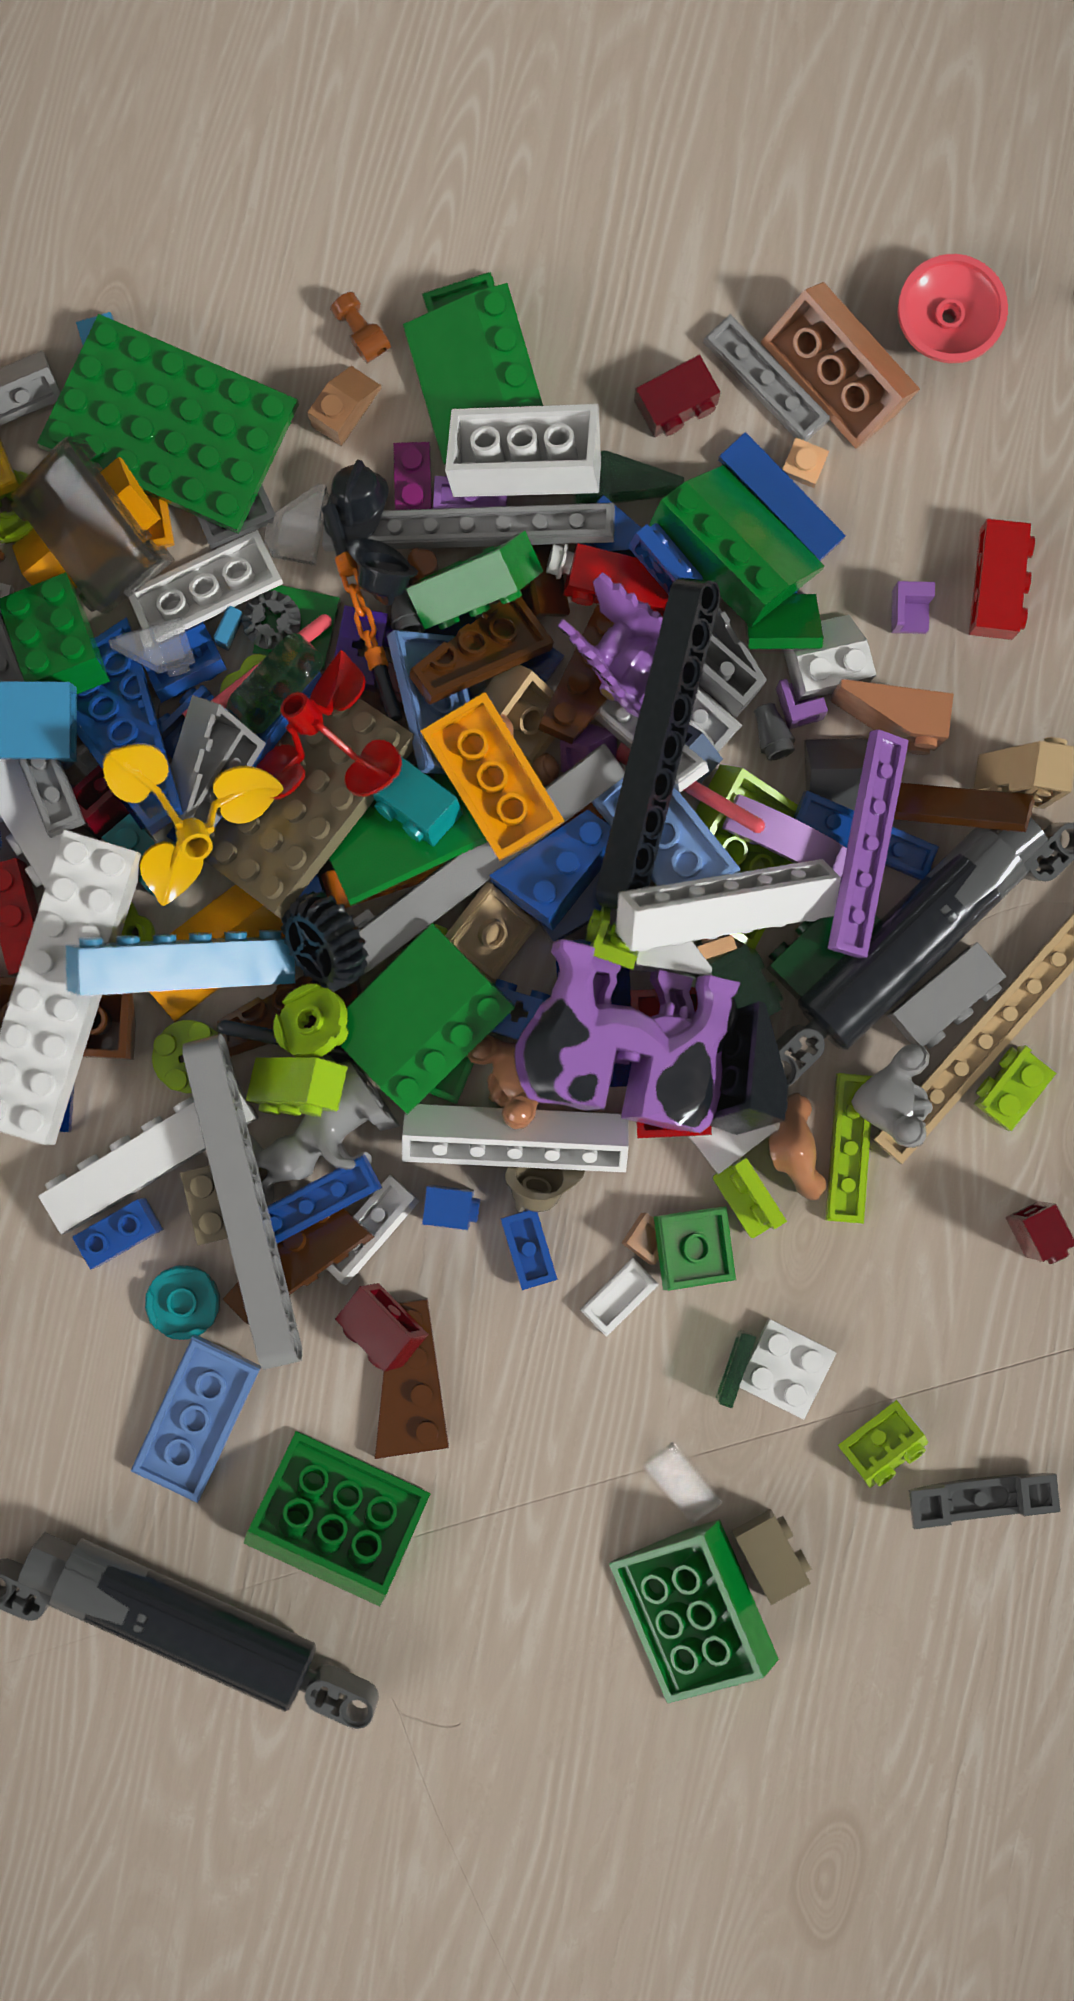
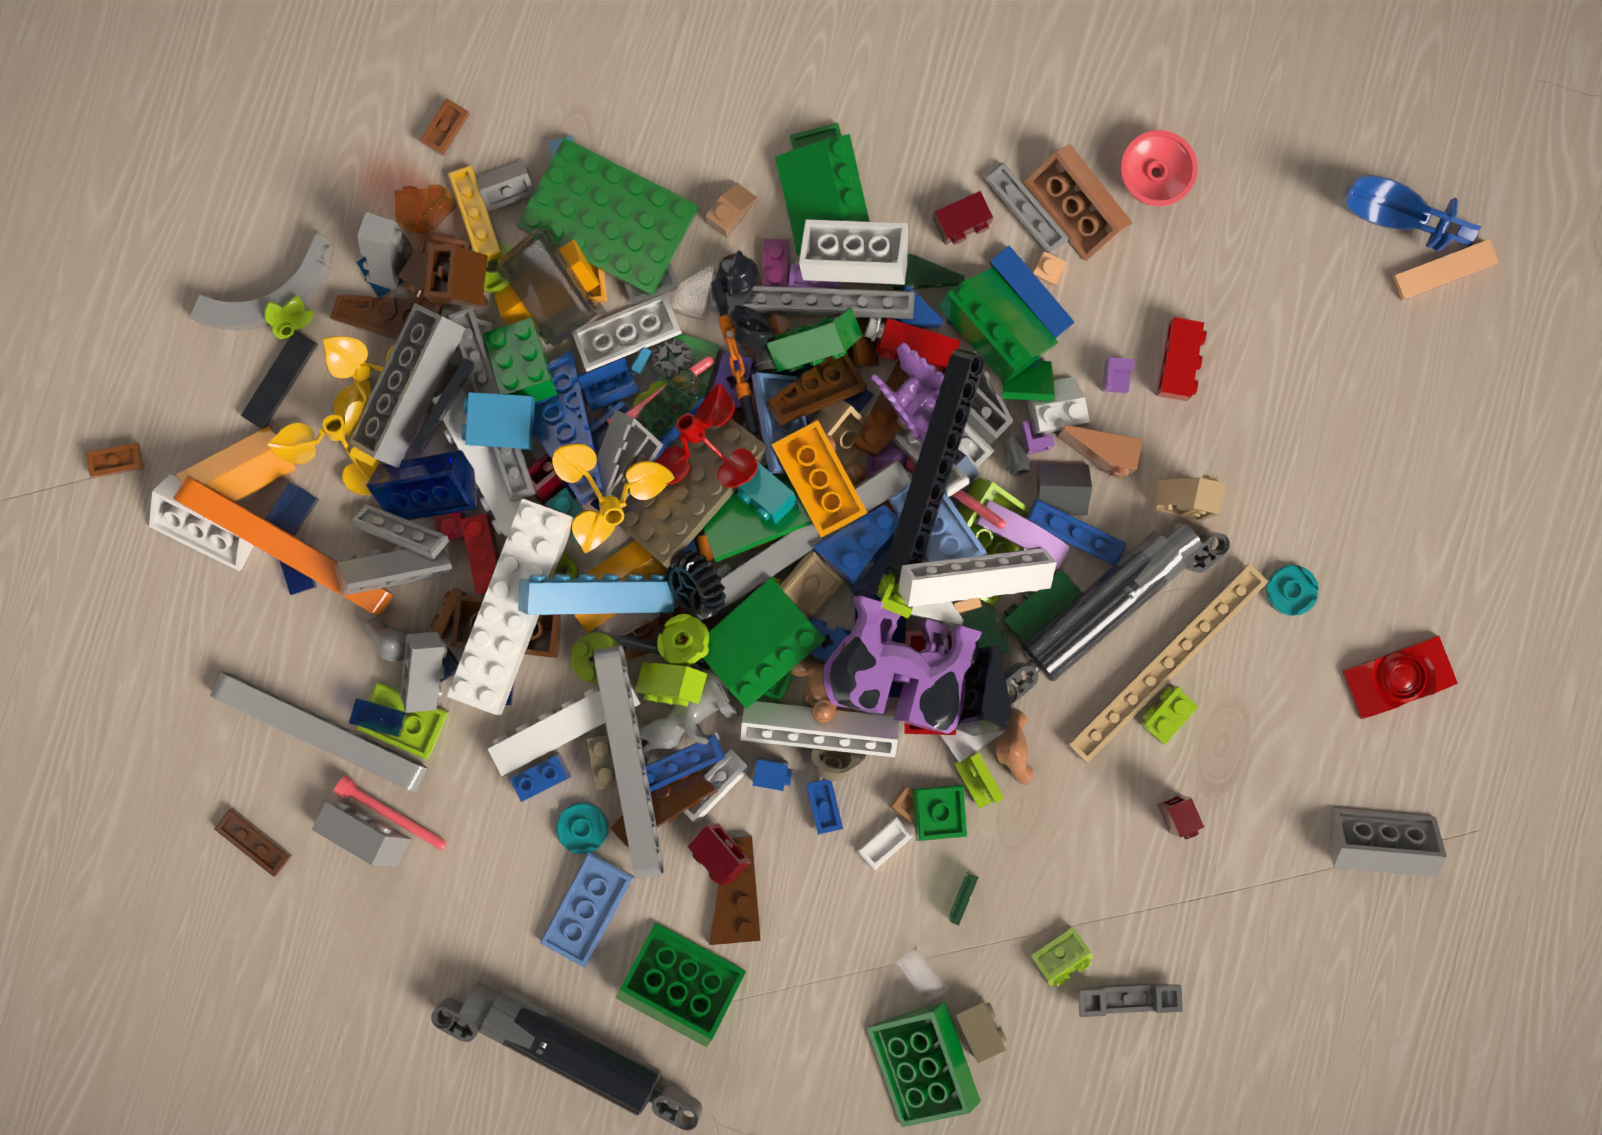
camera: 10 degrees right, 0 degrees up
(158, 647) = (592, 373): clear slope -> none
(366, 338) = (749, 164): dark orange leg -> none
(661, 556) = (946, 332): blue bracket -> none
(786, 1369) = (998, 900): white plate -> none
(848, 1154) = (1051, 749): lime tile -> none
(868, 844) = (1076, 540): medium lavender plate -> none
(894, 1101) = (1084, 719): light grey head -> none
(948, 997) = (1126, 648): light grey brick -> none
(964, 807) = (1140, 517): reddish brown tile -> none

